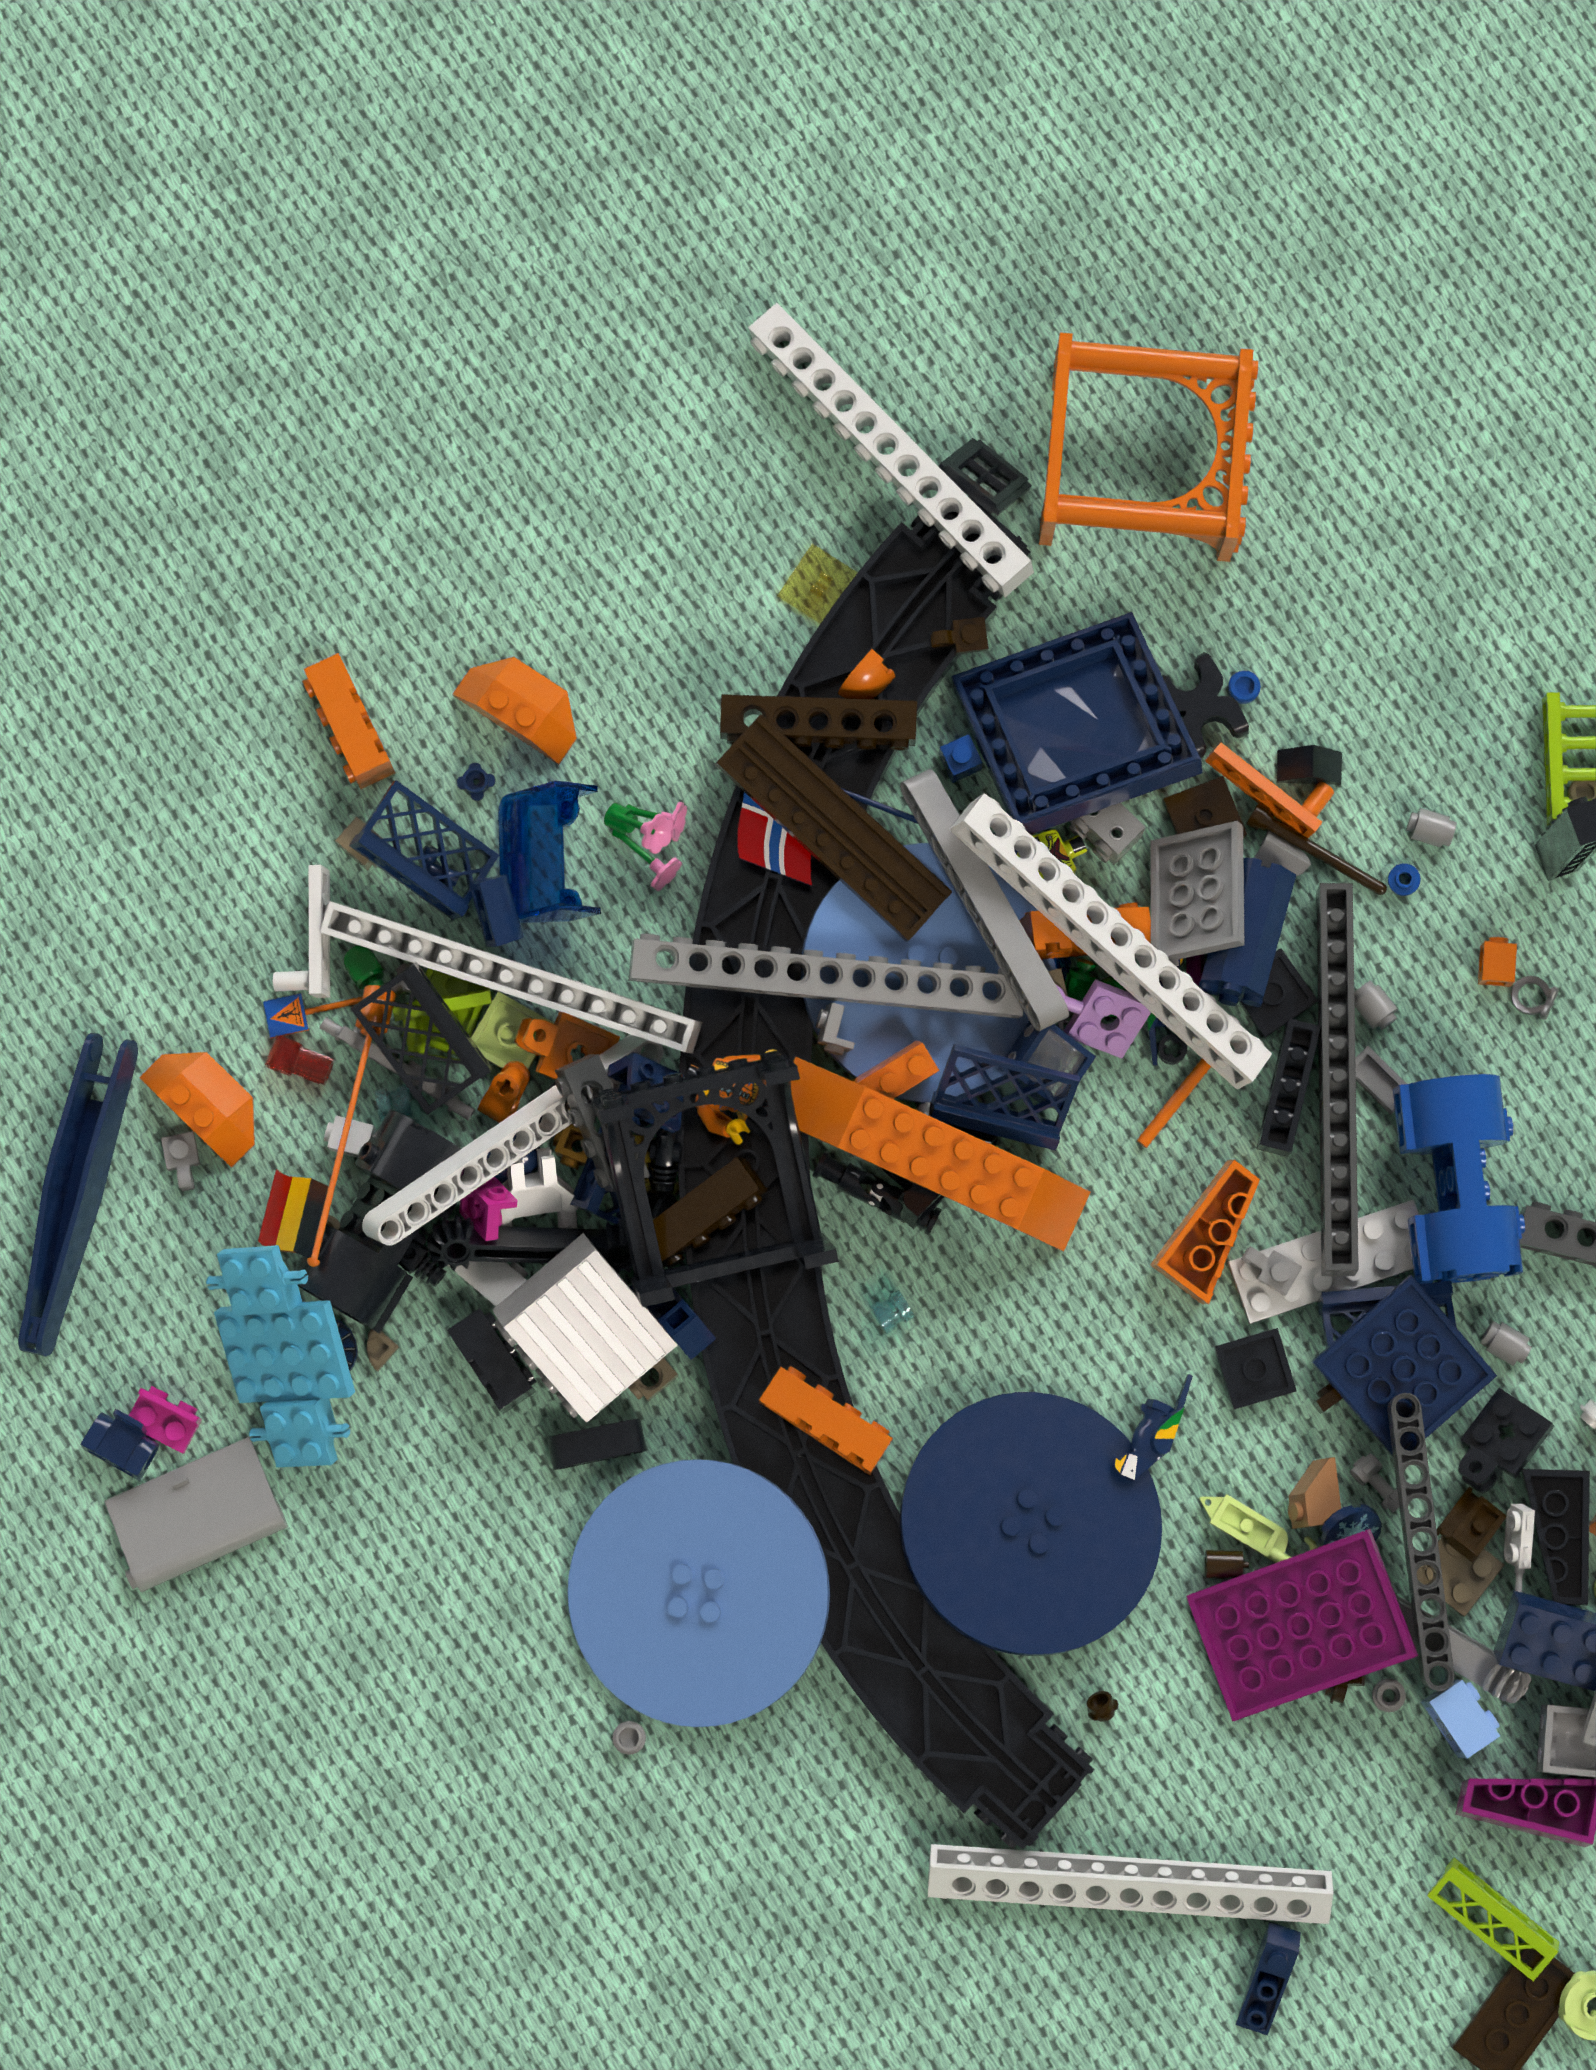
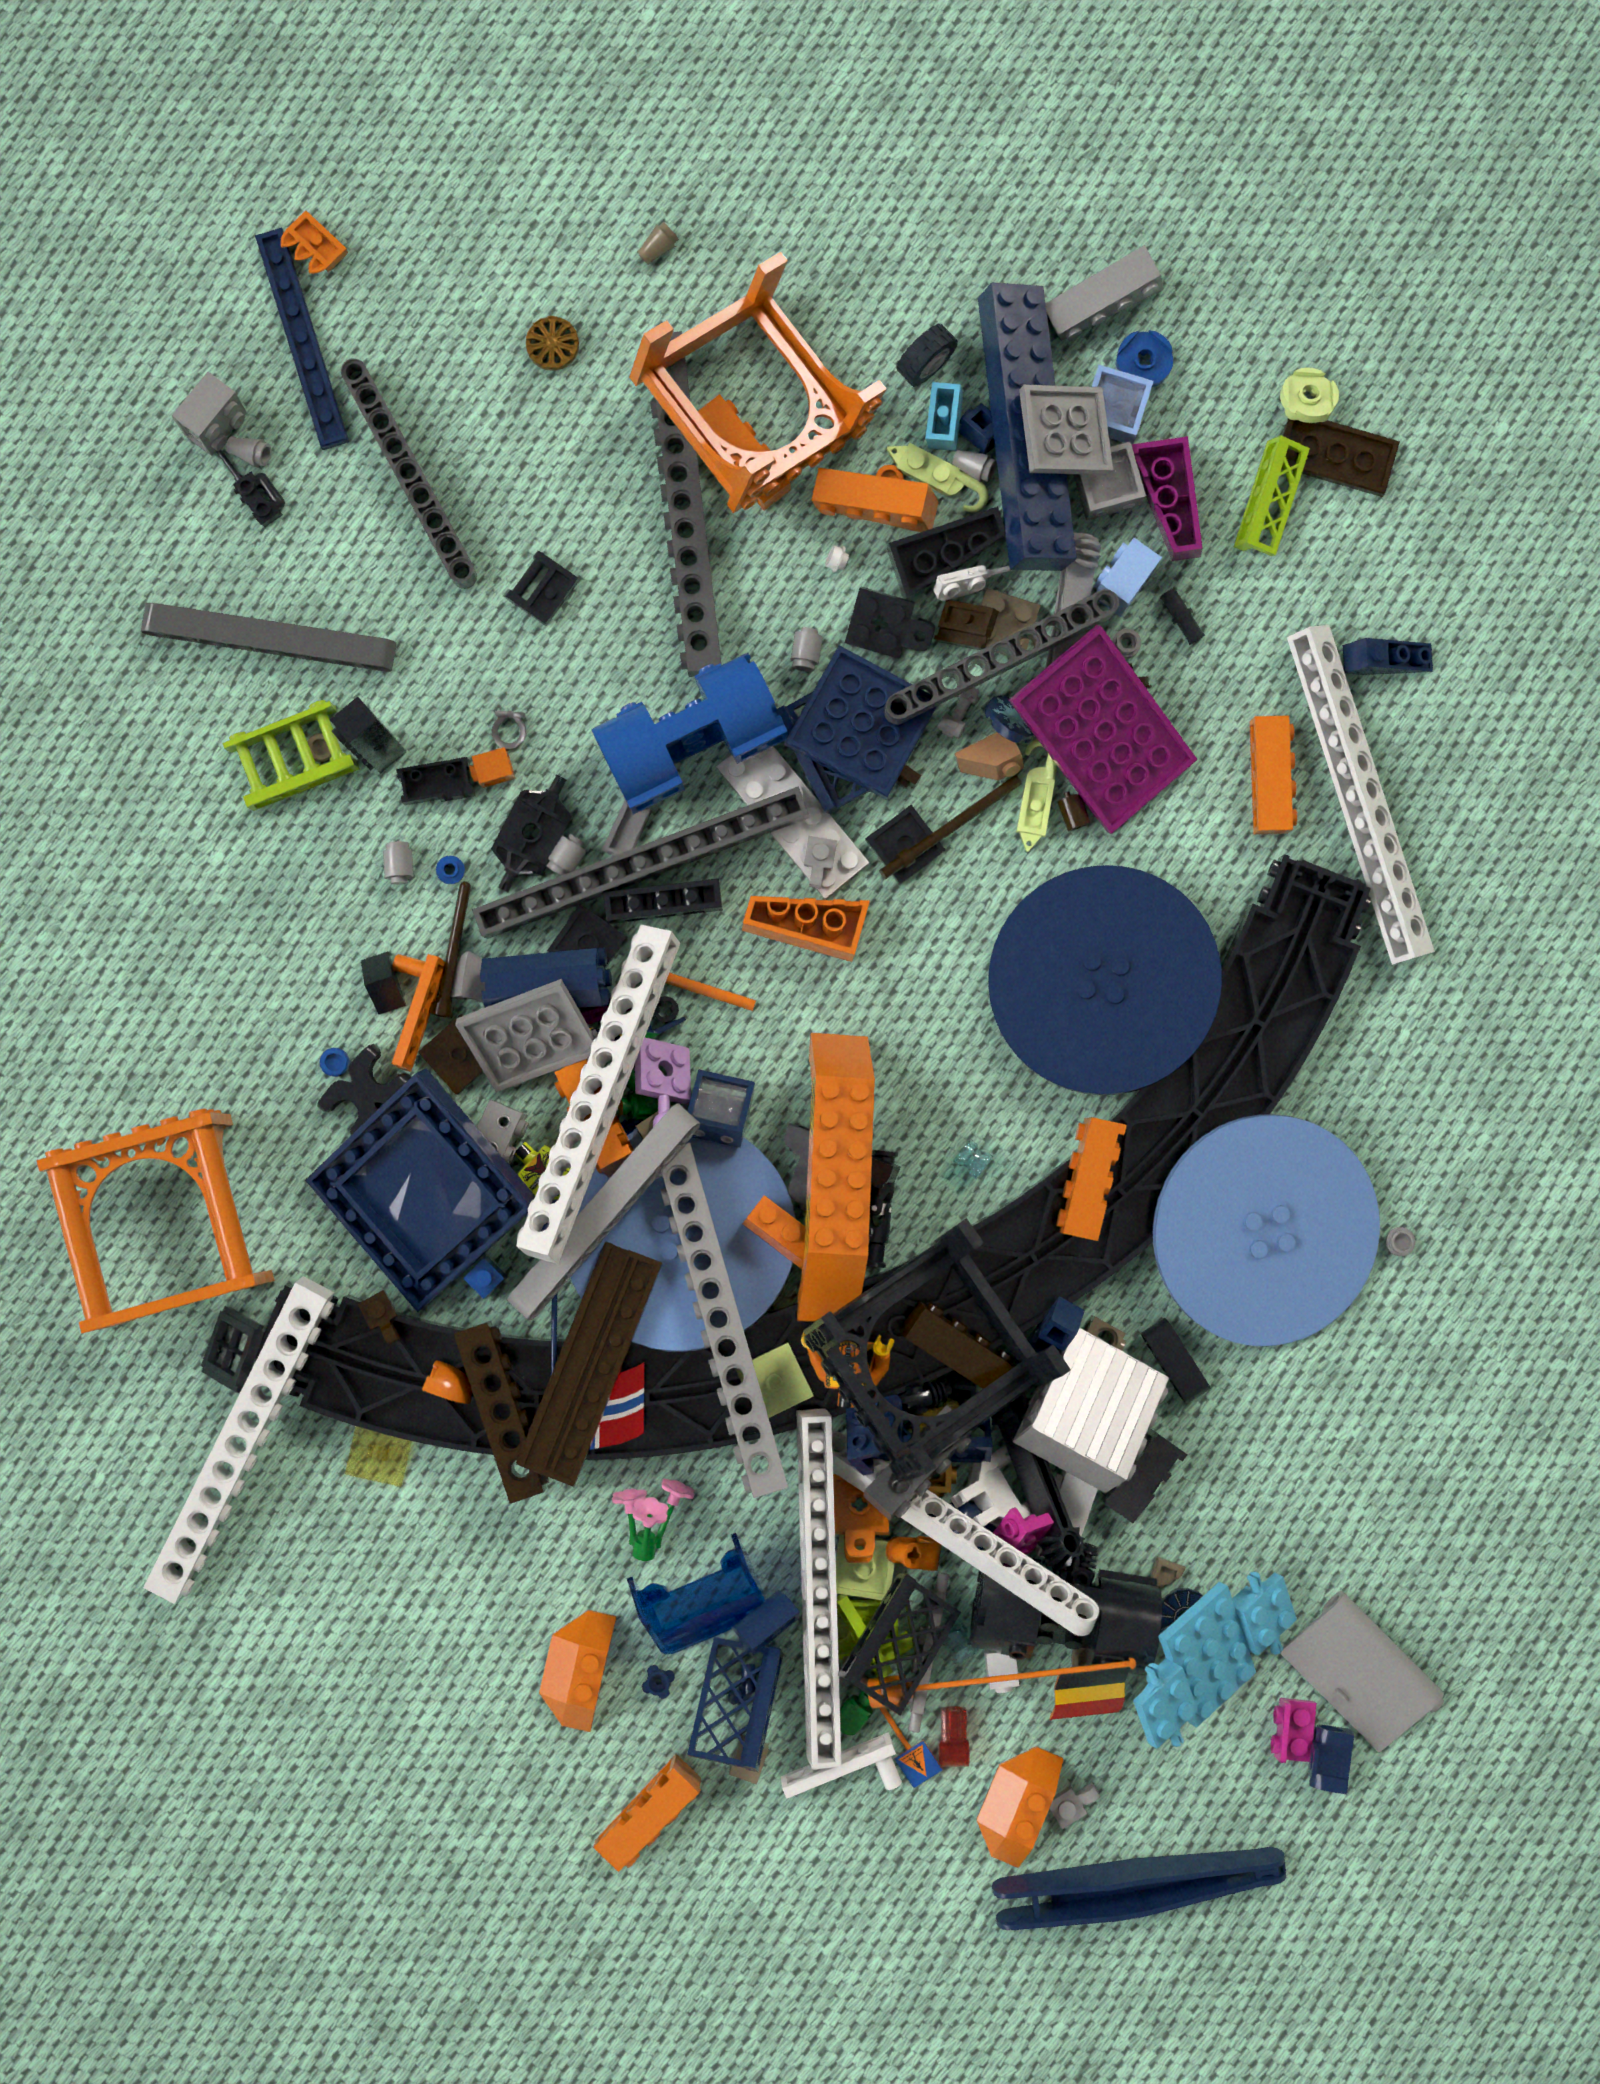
camera: 115 degrees left, 5 degrees up
(739, 1017) = (780, 1379): none -> yellowish green plate
(829, 1023) = (758, 1303): light grey bracket -> none
(1003, 1121) = (781, 1132): dark blue fence -> none
(1101, 1706) = (1226, 868): dark brown plate -> none
(1152, 1435) = (993, 907): dark blue animal -> none
(1185, 1795) = (1272, 775): none -> orange brick
(1240, 1361) = (907, 857): none -> dark brown bar
(1397, 1767) = (1182, 615): none -> black pin
(1419, 1004) = (527, 856): none -> black plate
(1503, 899) = (436, 781): none -> black piece

